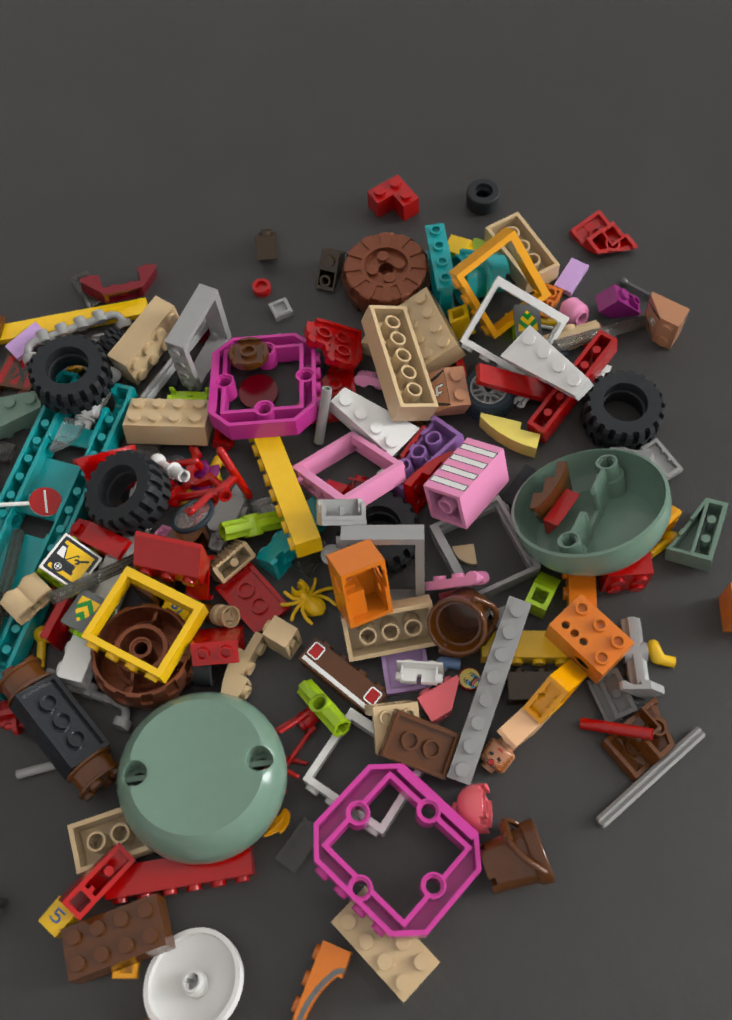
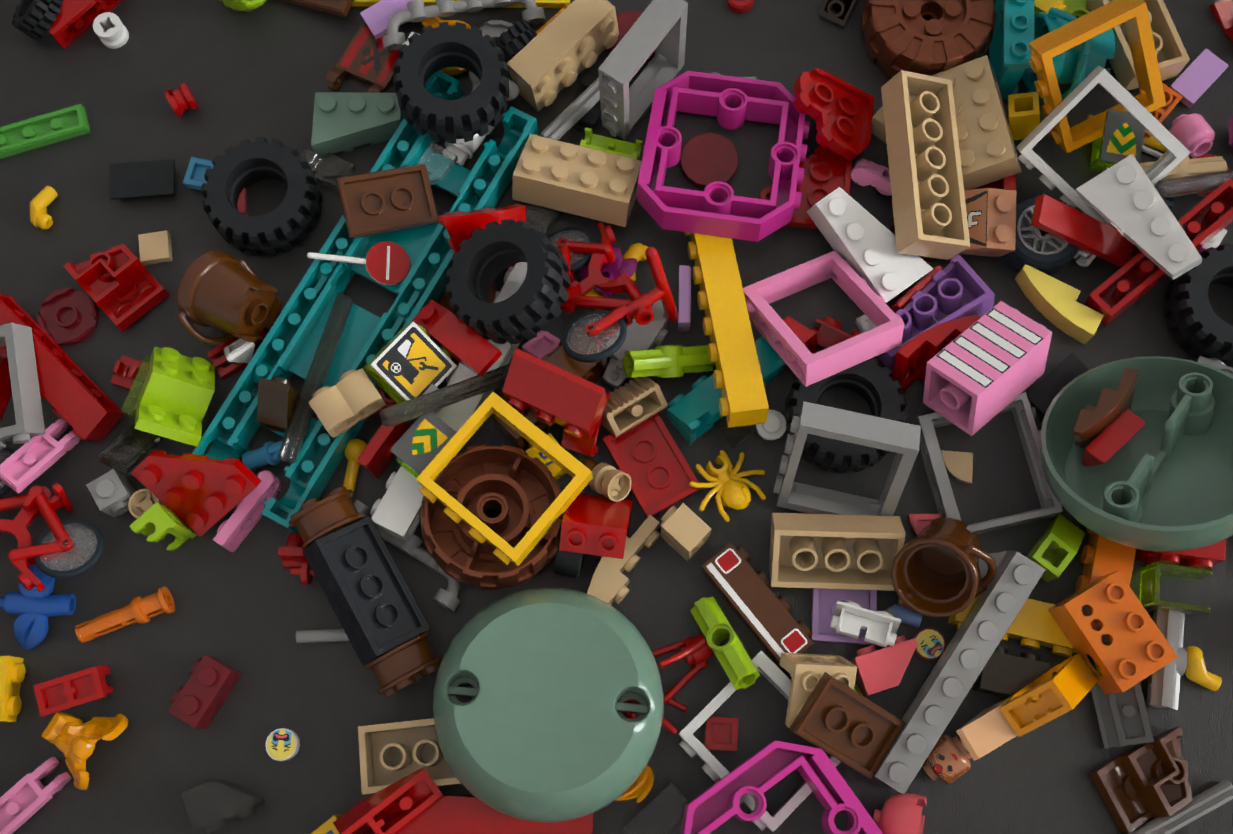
camera: 10 degrees right, 10 degrees up
(16, 855) = (282, 744): none -> tile
(38, 460) = (387, 201): none -> reddish brown tile
(173, 469) = (575, 257): white pin -> none
(221, 440) = (644, 224): red brick -> none
(248, 353) = (708, 102): reddish brown tile -> none
(255, 480) = (684, 298): none -> lavender tile
(263, 505) = (689, 334): clear slope -> none
(280, 309) = (762, 38): light grey tile -> none
(322, 417) = (799, 219): light grey piece -> none
(335, 774) = (721, 733): none -> red tile
(341, 512) = (806, 381): light grey hinge -> none
(358, 584) = (811, 490): orange piece -> none
(457, 580) = (944, 508): bright pink plate -> none
(617, 728) = (1118, 760): red piece -> none
(627, 591) = (1154, 571): none -> clear neon green piece
(645, 689) = (1167, 715): light grey tile -> none

